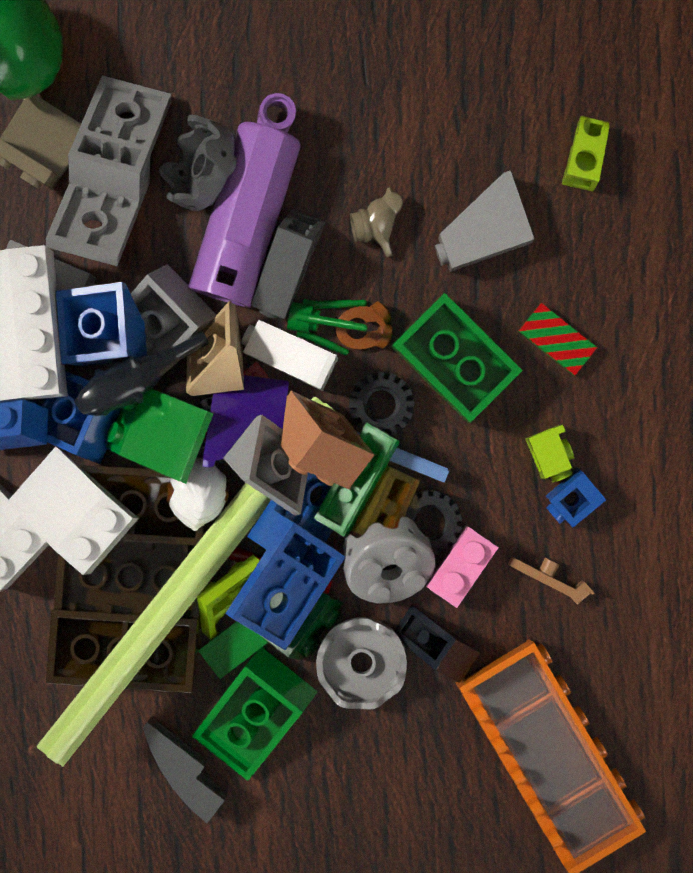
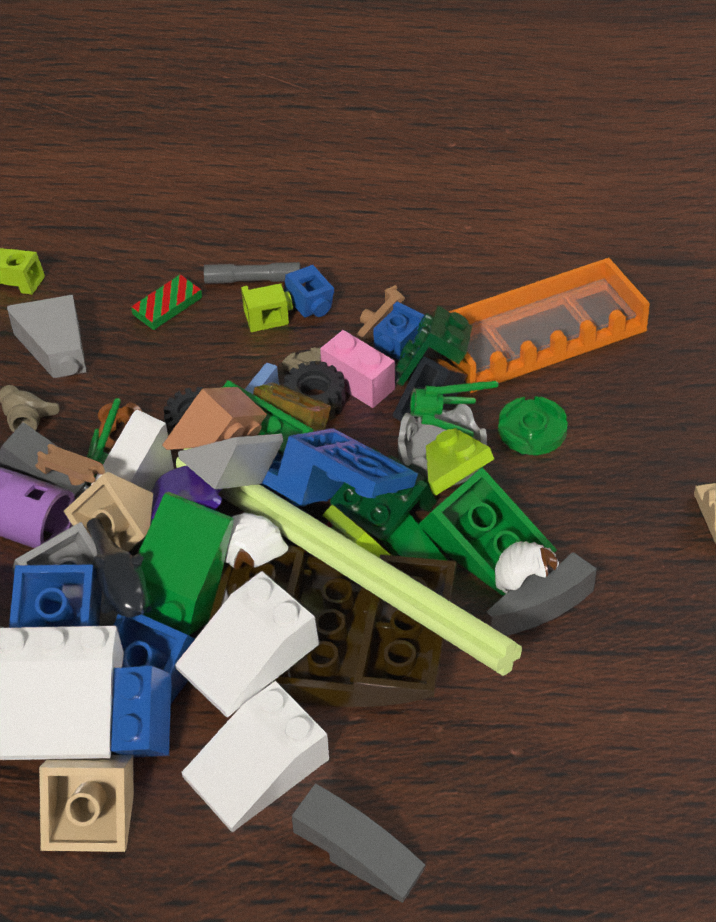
camera: 80 degrees left, 40 degrees down
(198, 757) = (522, 561): none -> white hair
(255, 302) = (77, 467): none -> medium nougat piece
(321, 680) = (454, 458): none -> lime wing
(383, 547) = (348, 403): light grey plate -> none
(392, 649) = (430, 401): none -> green plant
(410, 751) = (540, 432): none -> green tile
(457, 358) = (165, 355): green brick -> none
(480, 506) = (294, 359): none -> dark tan tile
(485, 648) = (441, 331): none -> dark green bracket
(538, 602) = (396, 330): none -> blue brick
(612, 450) = (231, 273): none -> dark grey piece

